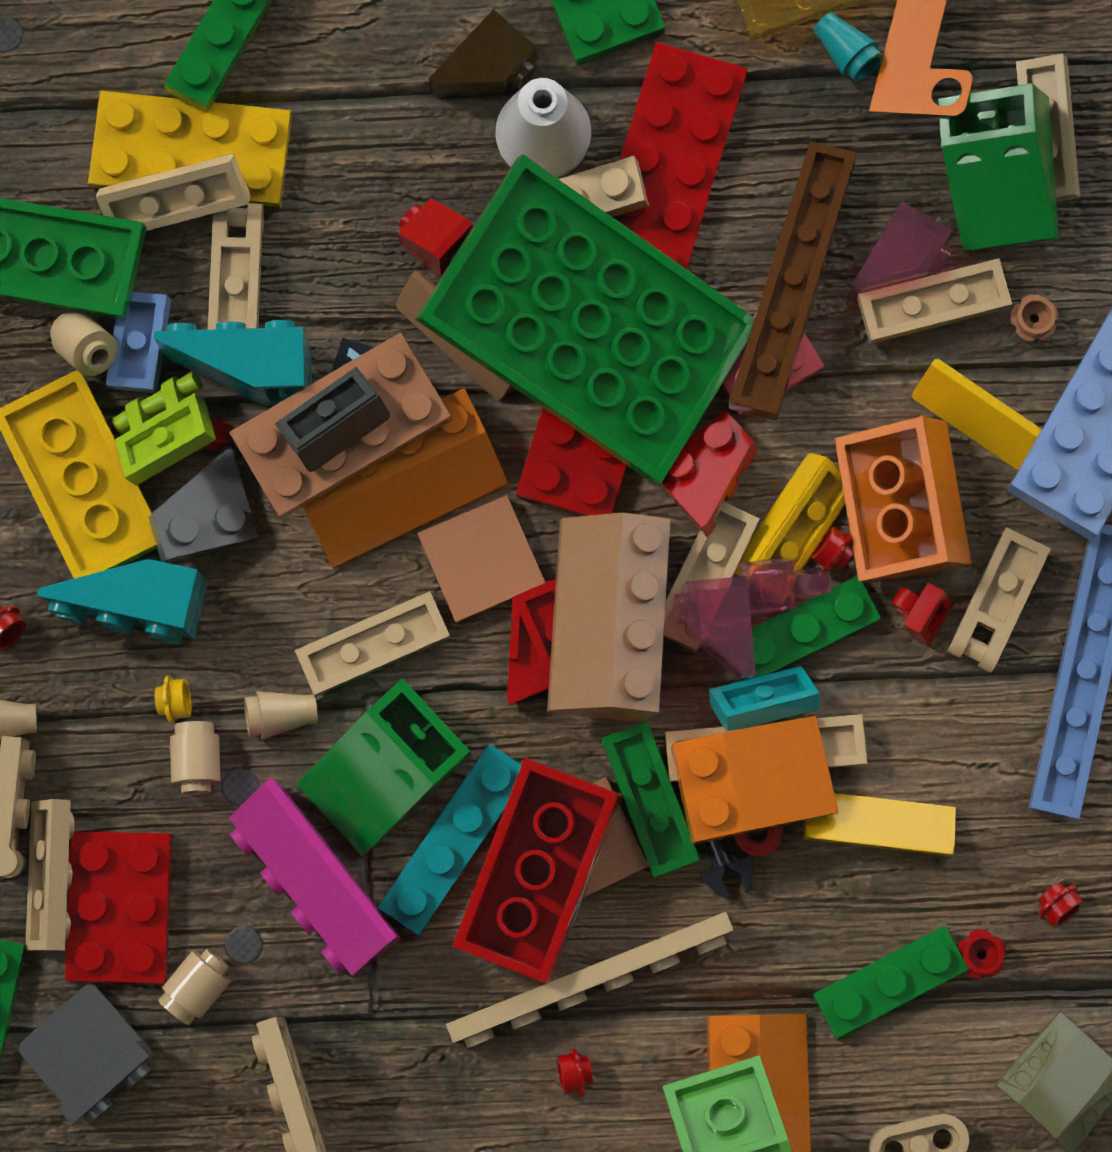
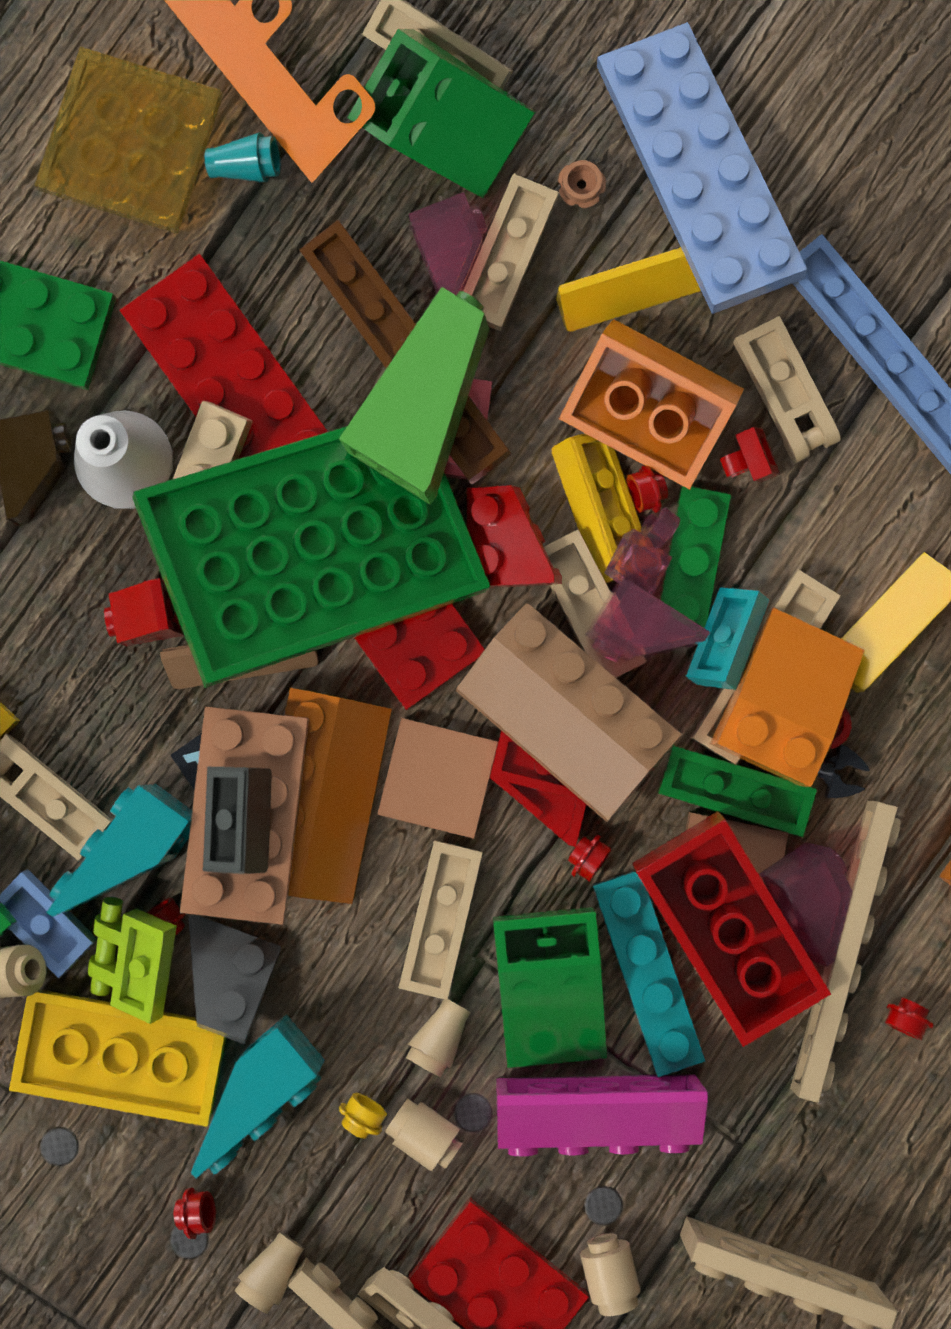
camera: 55 degrees left, 5 degrees up
(509, 722) = (588, 857): none -> red plate
(610, 919) = (812, 897): none -> clear pink slope
(765, 315) = (419, 400): none -> bright green slope

